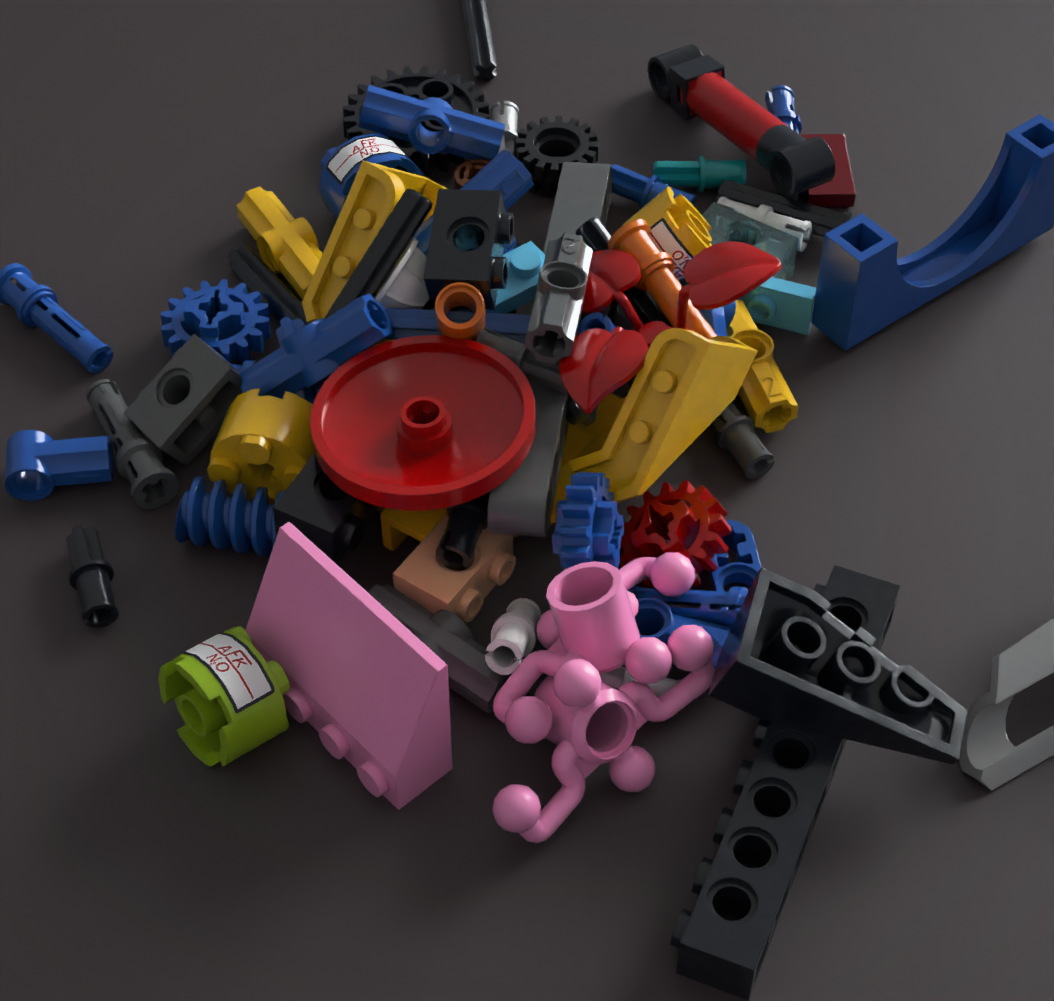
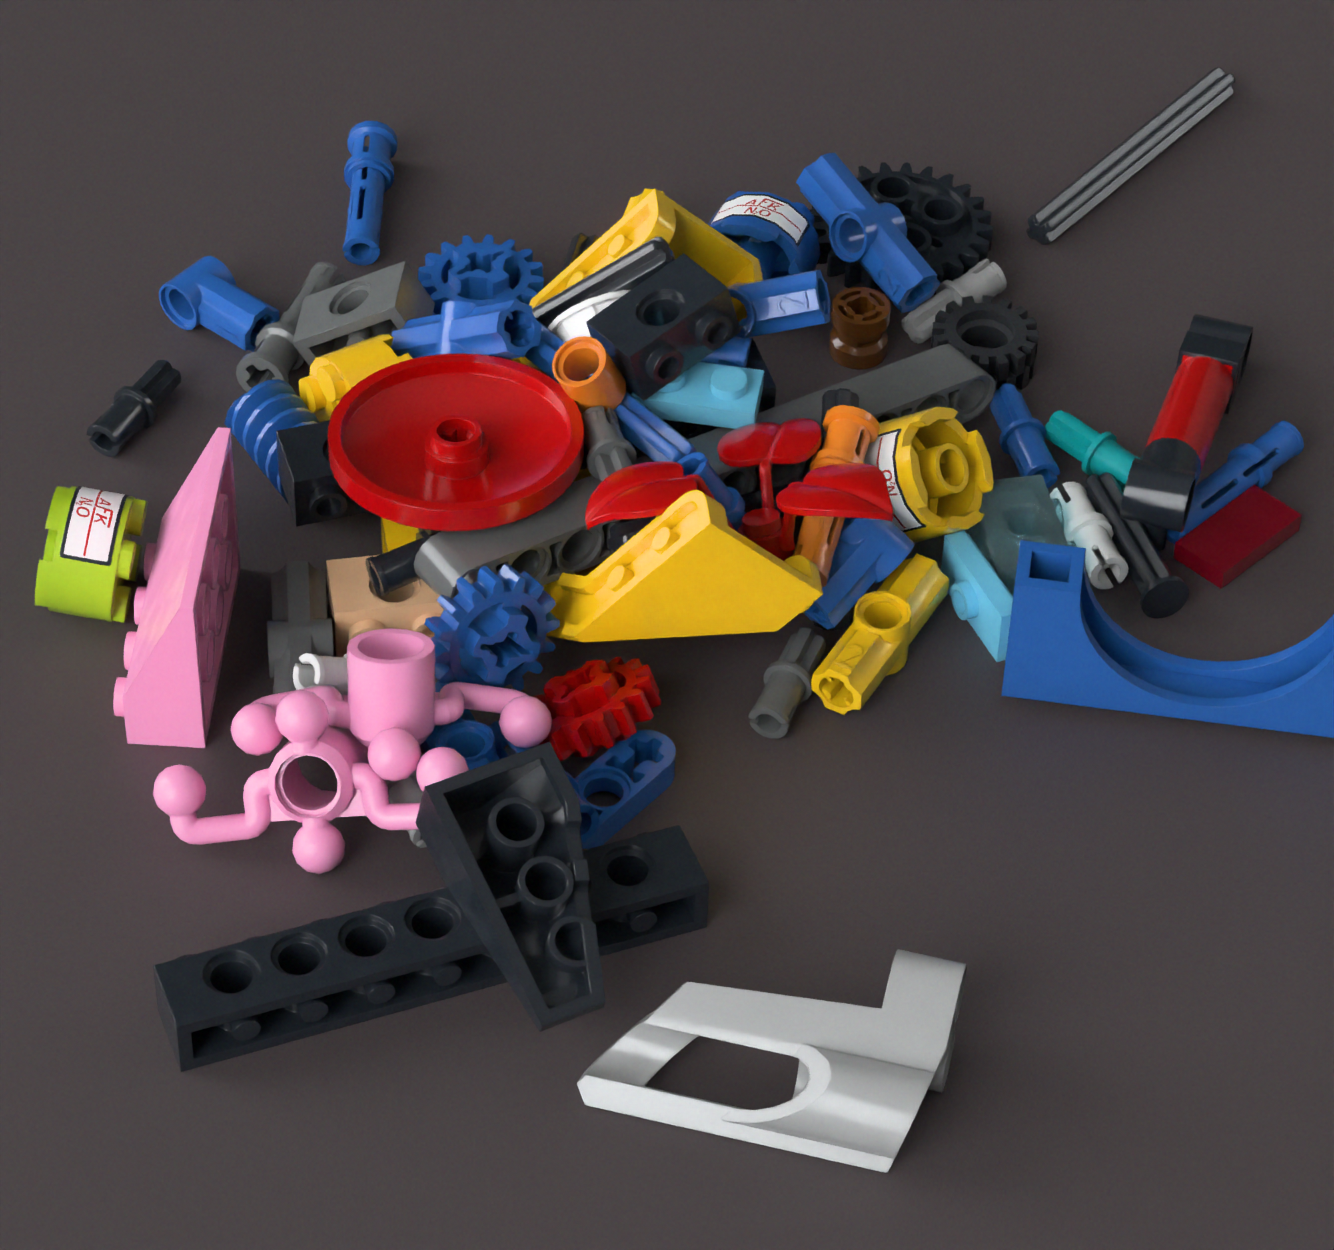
camera: 45 degrees right, 5 degrees down
(559, 299) = (688, 419): dark grey piece -> none

